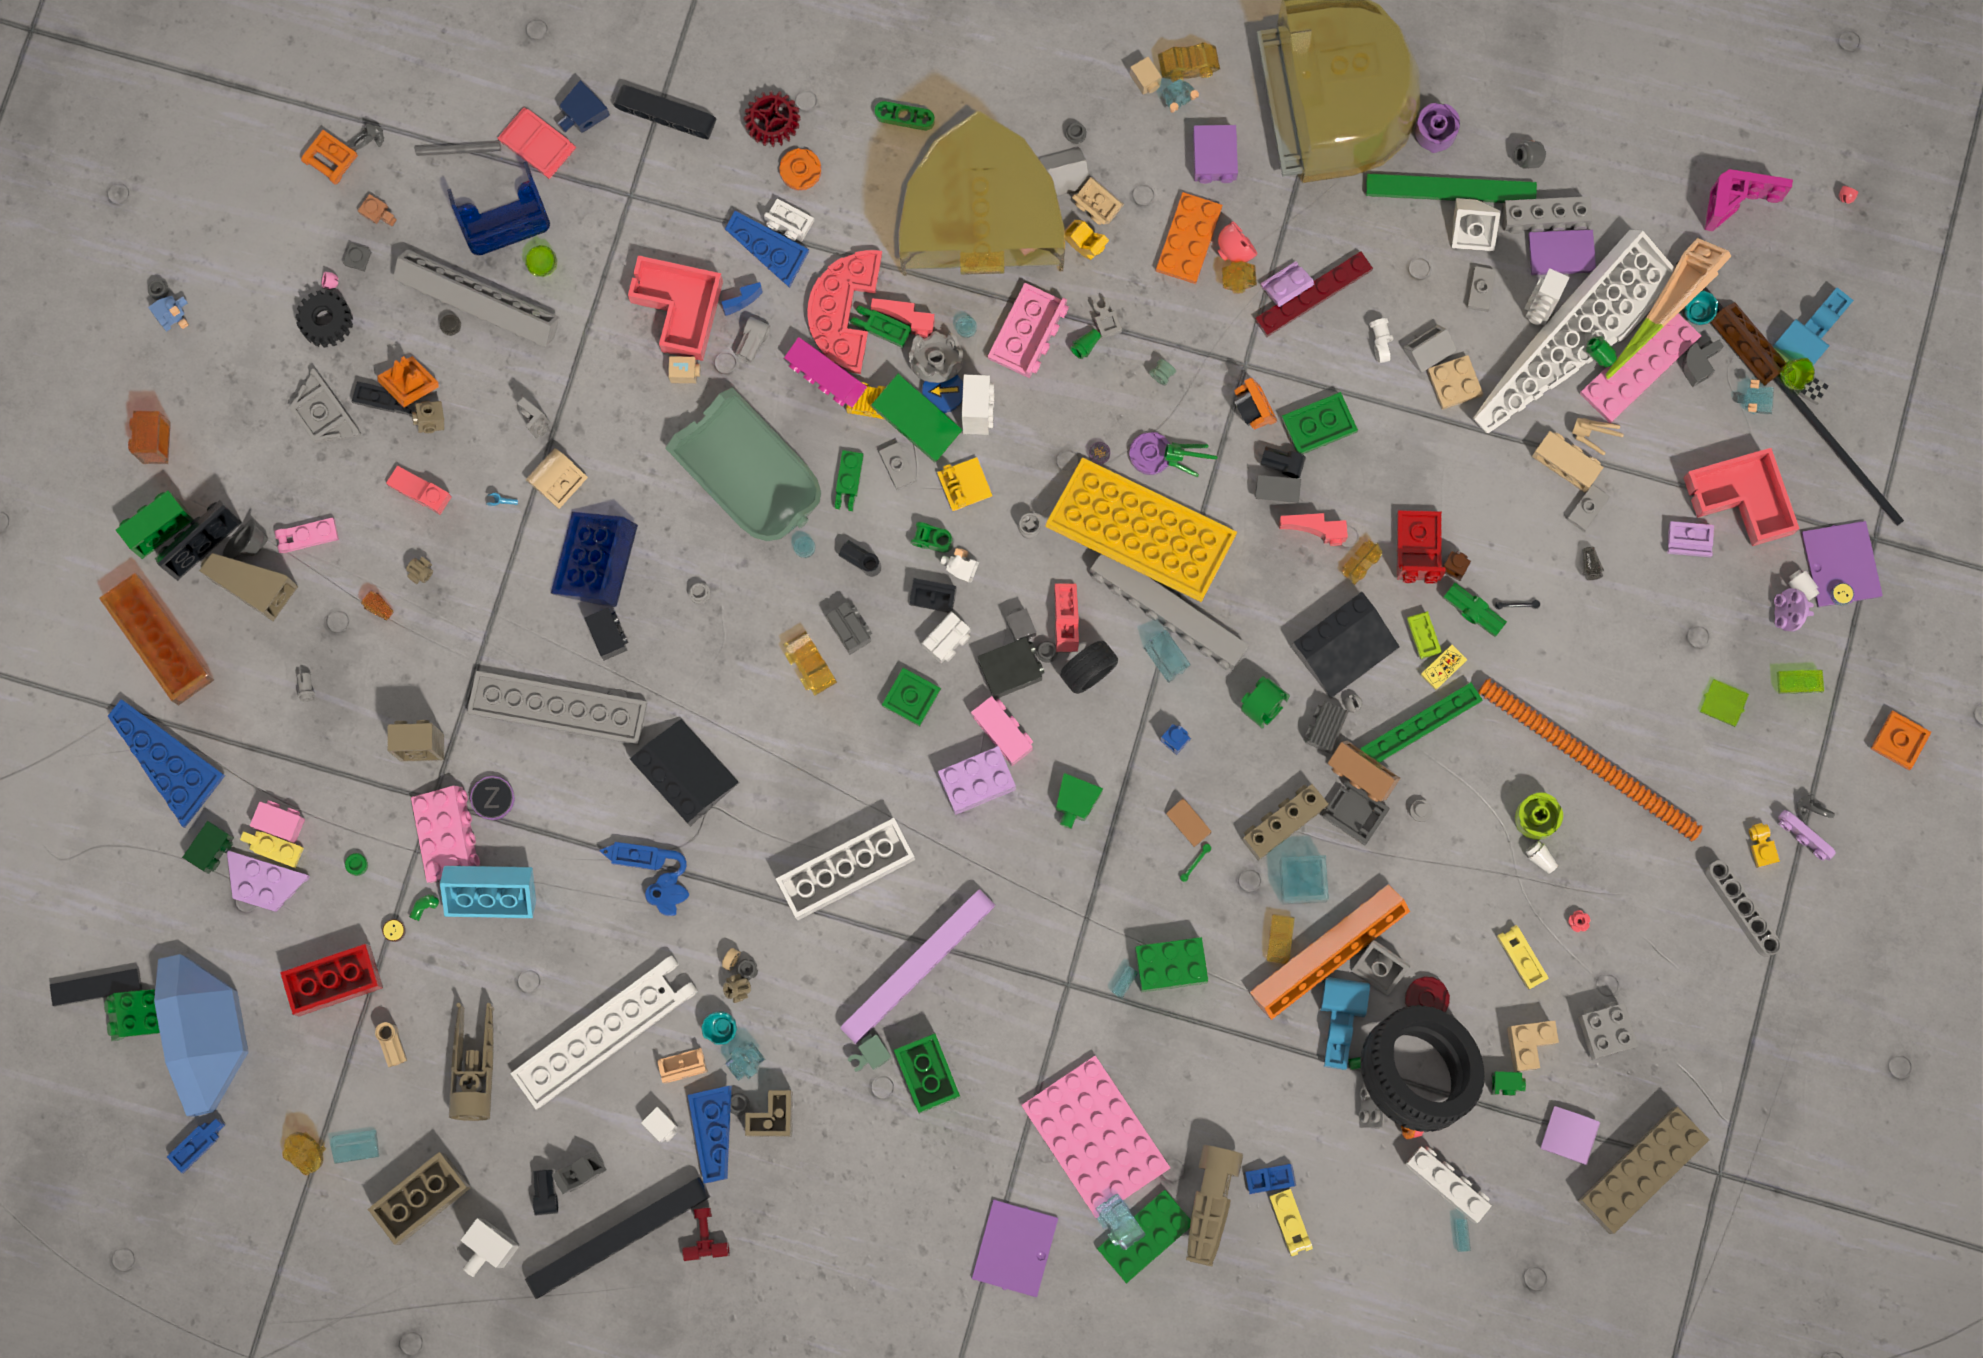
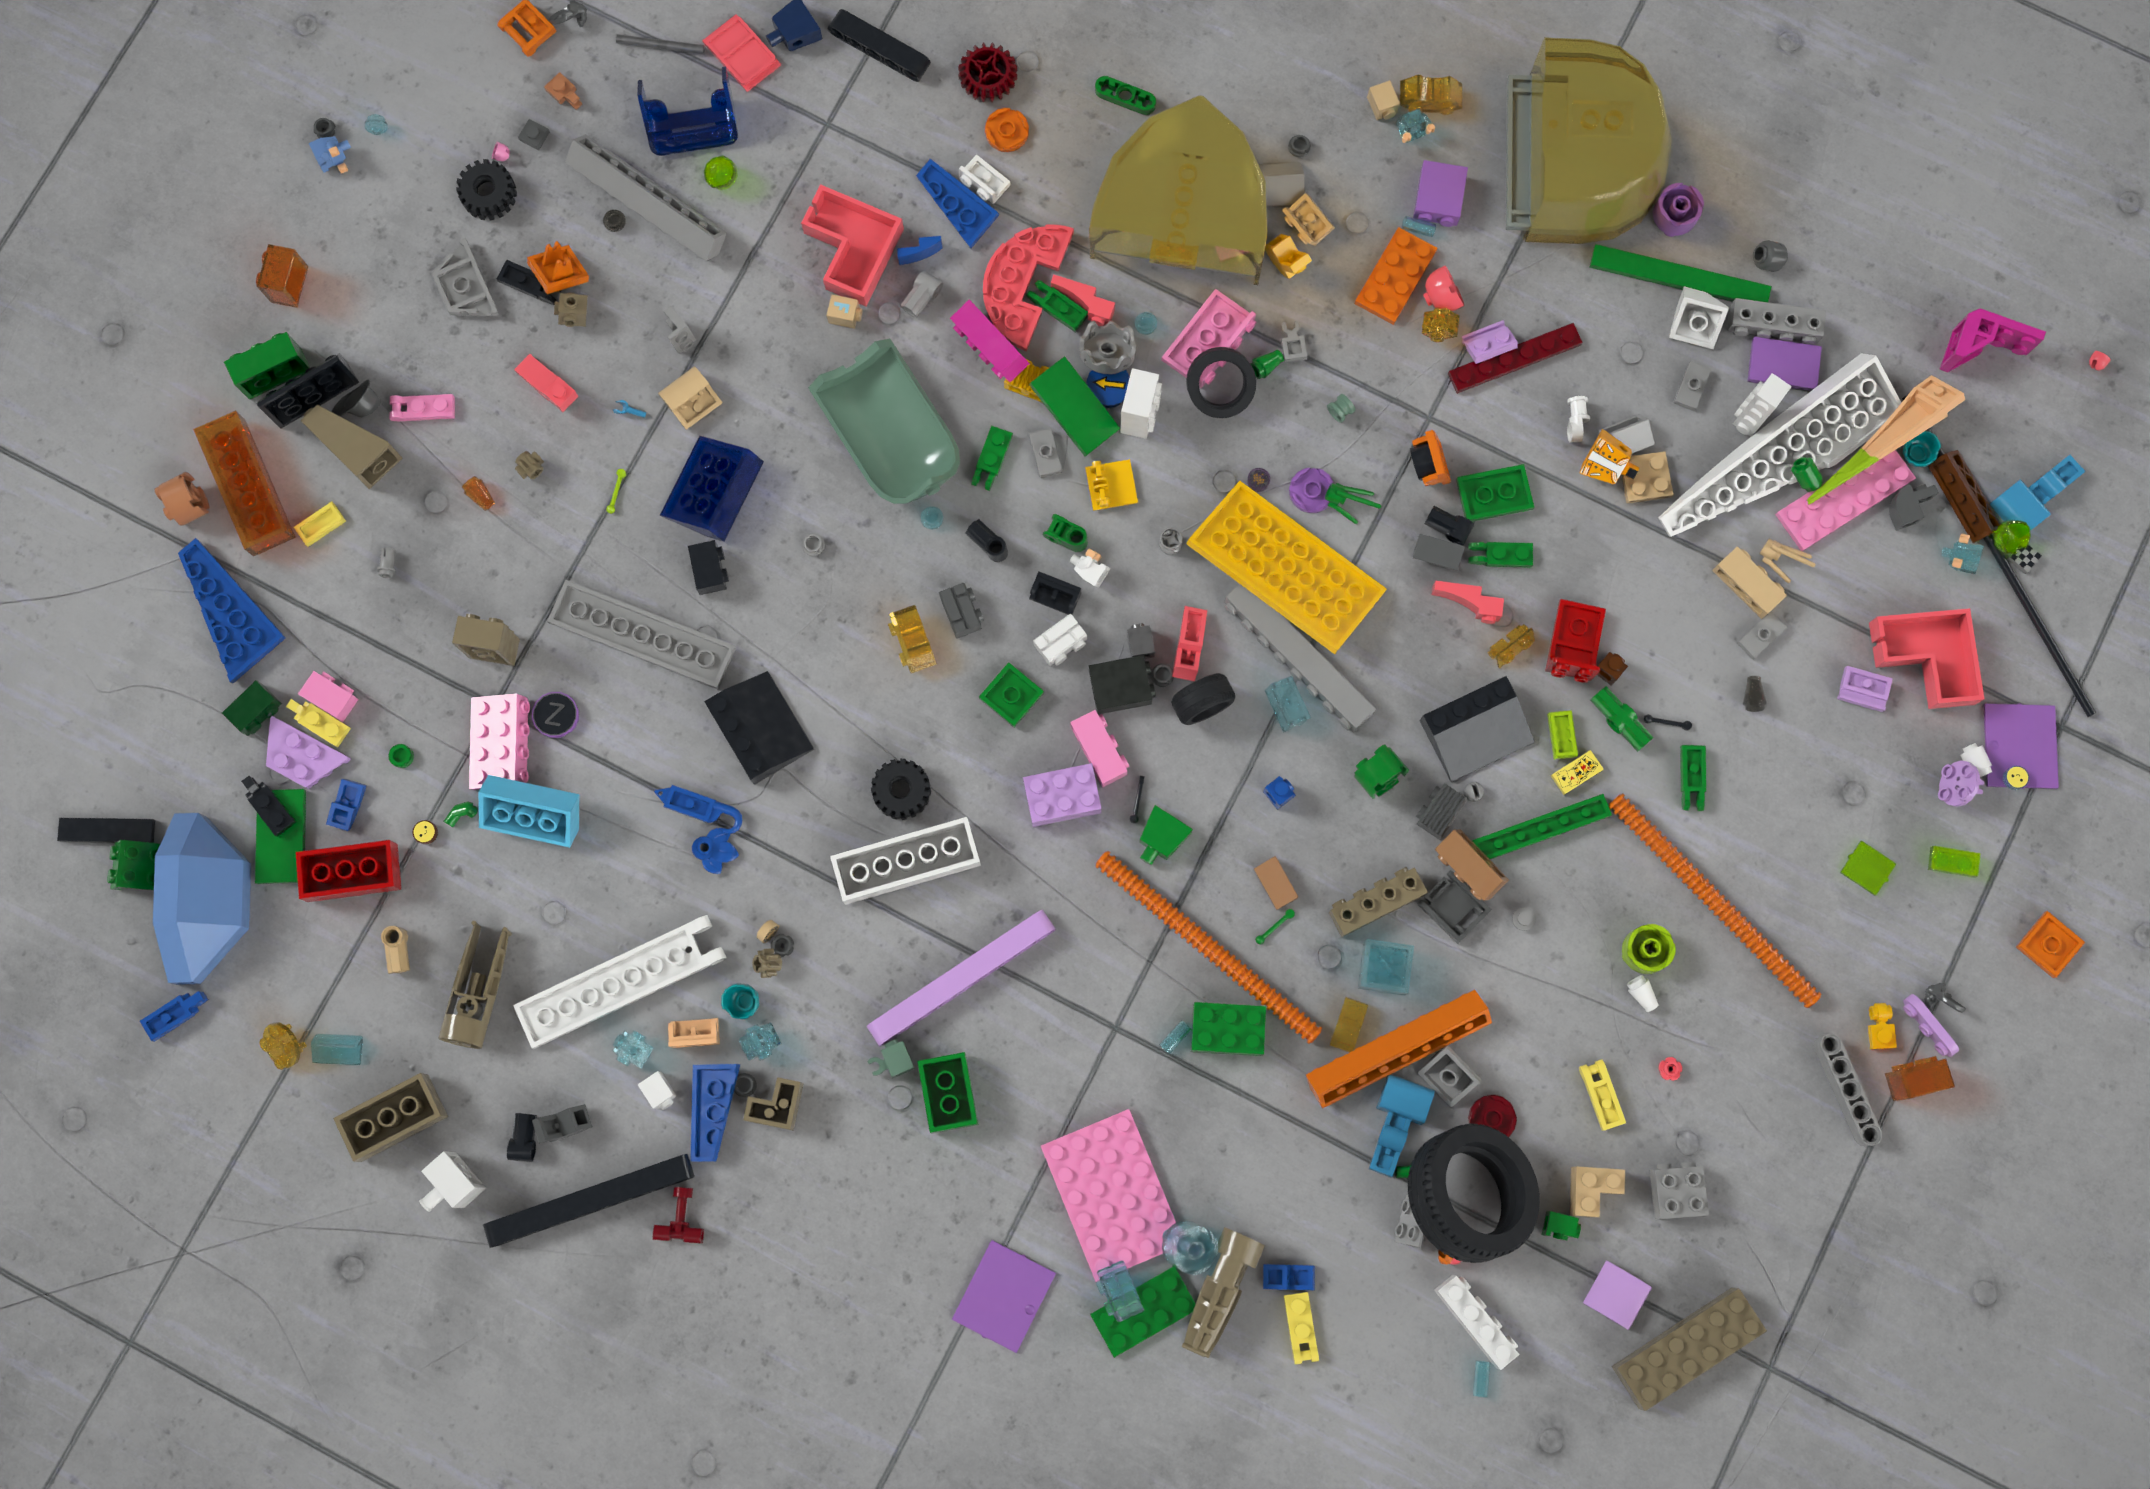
camera: 10 degrees right, 0 degrees up
(101, 665) = (182, 499): none -> nougat brick
(206, 276) = (376, 124): none -> clear light blue plate
(234, 663) = (319, 524): none -> light yellow tile
(243, 935) = (268, 806): none -> black hinge
(259, 960) = (277, 855): none -> green tile
(315, 919) = (347, 804): none -> blue slope
(506, 562) = (621, 474): none -> lime hinge
(628, 1091) = (632, 1048): none -> clear light blue brick
(827, 820) = (907, 805): none -> black tyre
(1047, 789) = (1134, 818): none -> black hinge
(1068, 385) = (1240, 402): none -> black tyre
(1138, 893) = (1208, 947): none -> orange piece
(1175, 1169) = (1189, 1247): none -> clear light blue brick
(1202, 188) = (1418, 226): none -> clear light blue axle
(1337, 479) = (1502, 554): none -> green hinge
(1417, 373) = (1608, 460): none -> light orange torso
(1549, 649) = (1693, 775): none -> green hinge
(1809, 883) = (1923, 1078): none -> clear orange piece

